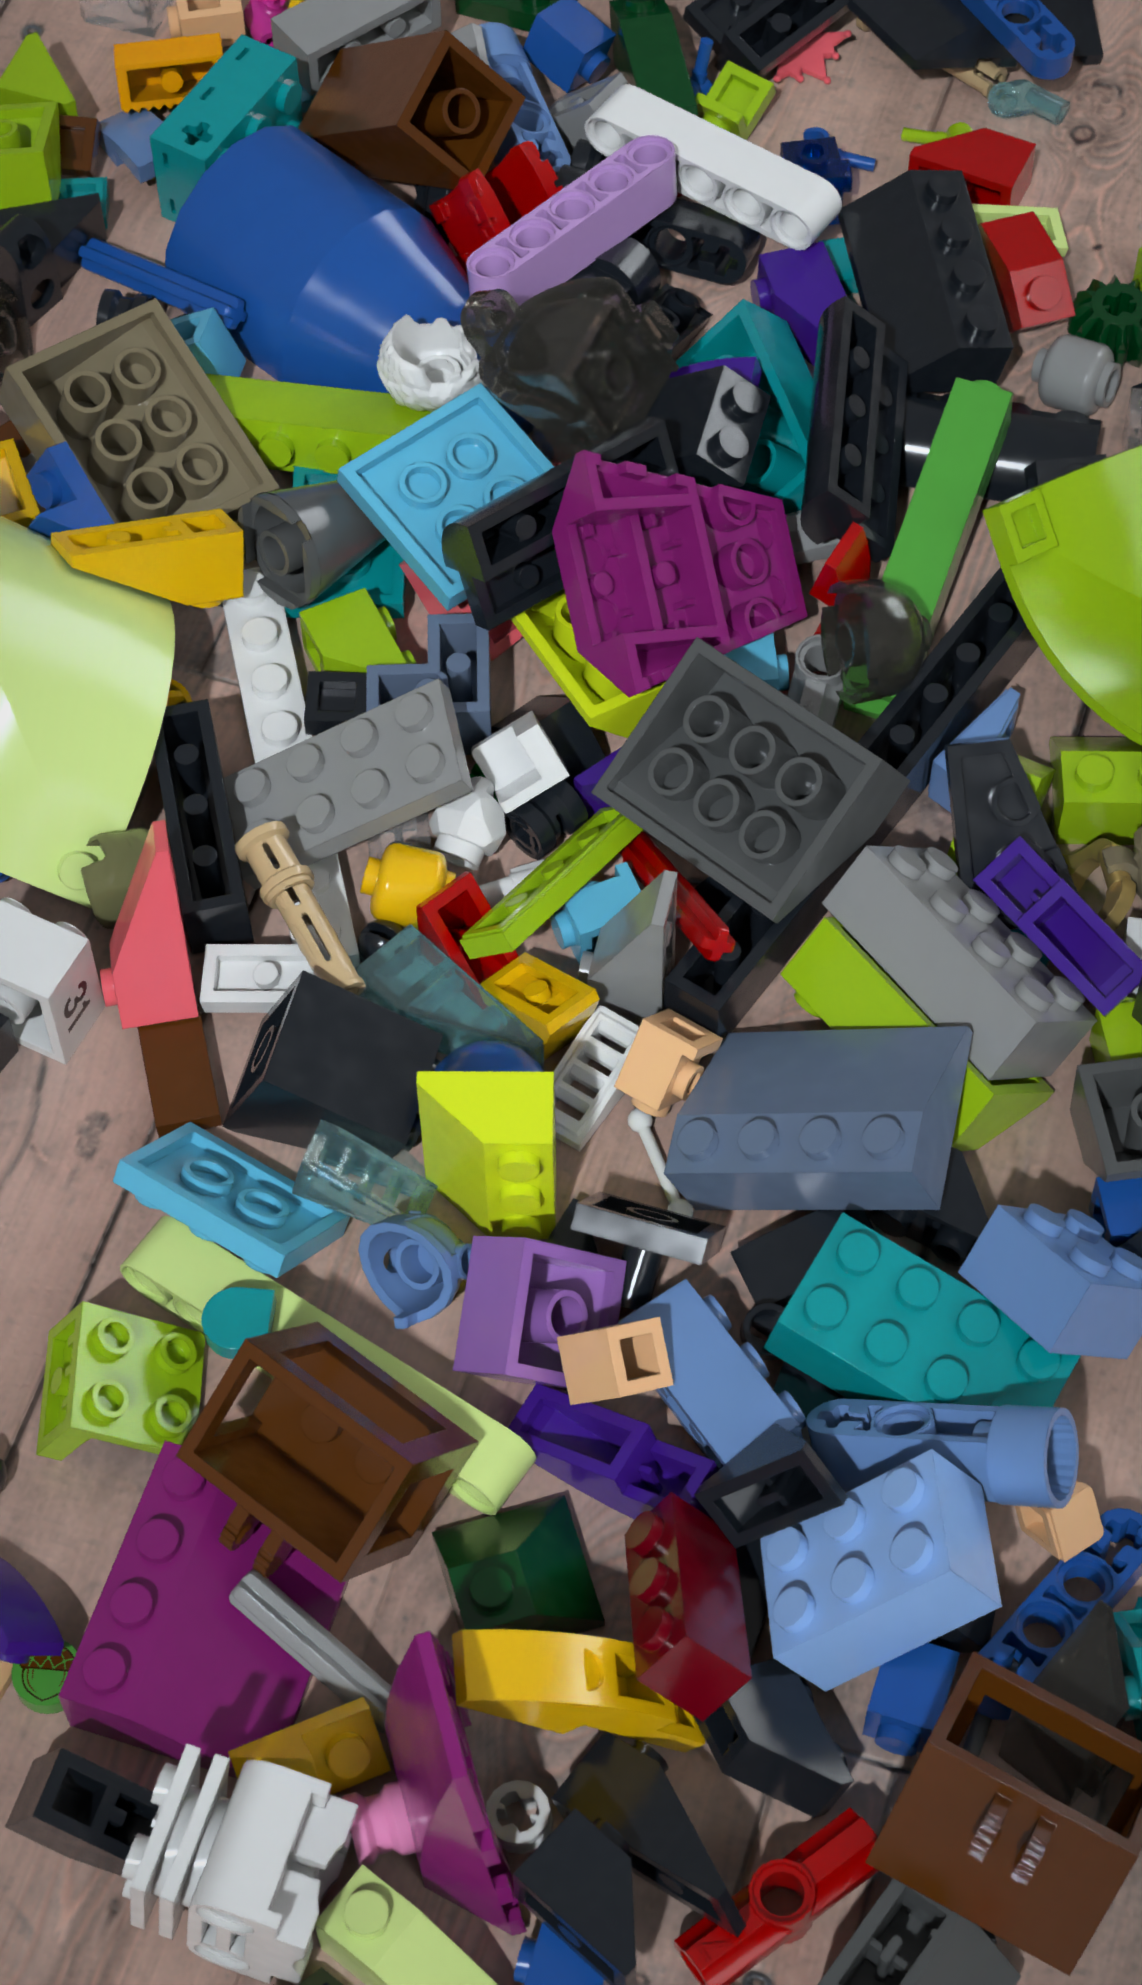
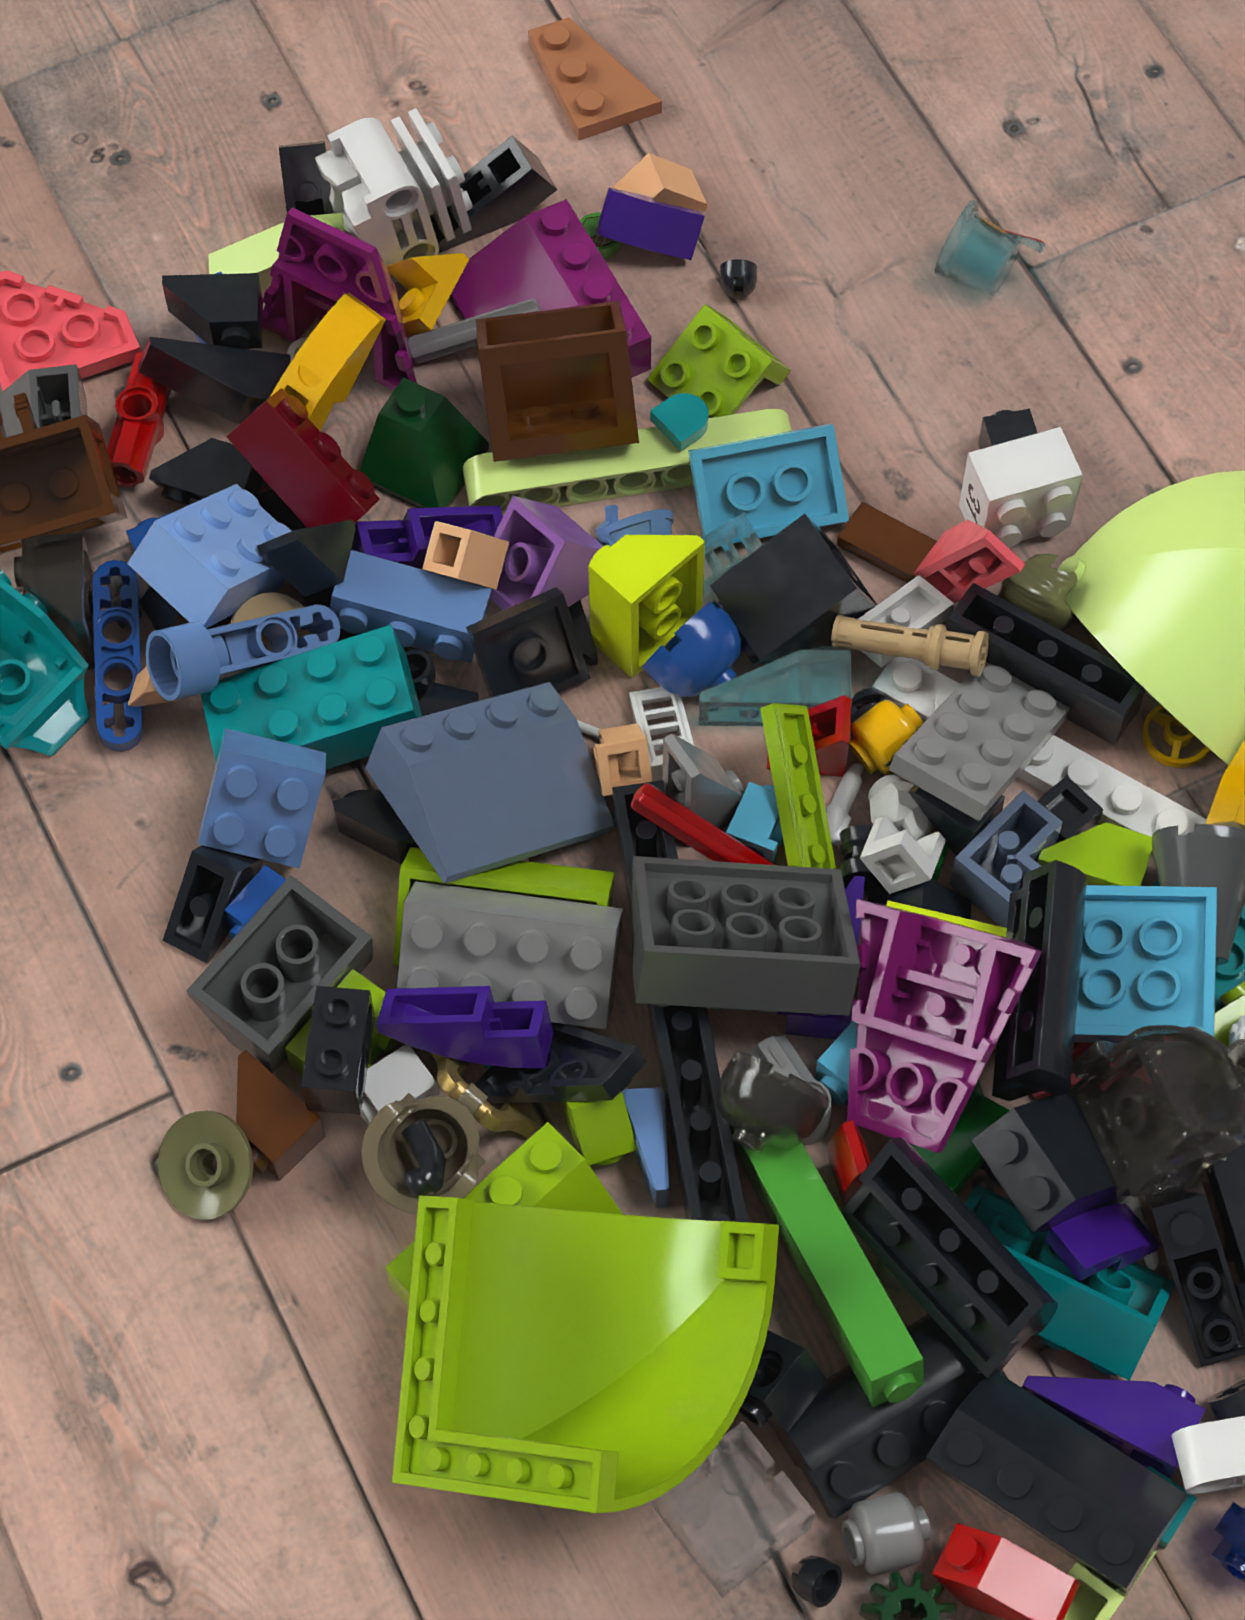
camera: 135 degrees right, 5 degrees up
(543, 999) = (727, 730): yellow slope -> none

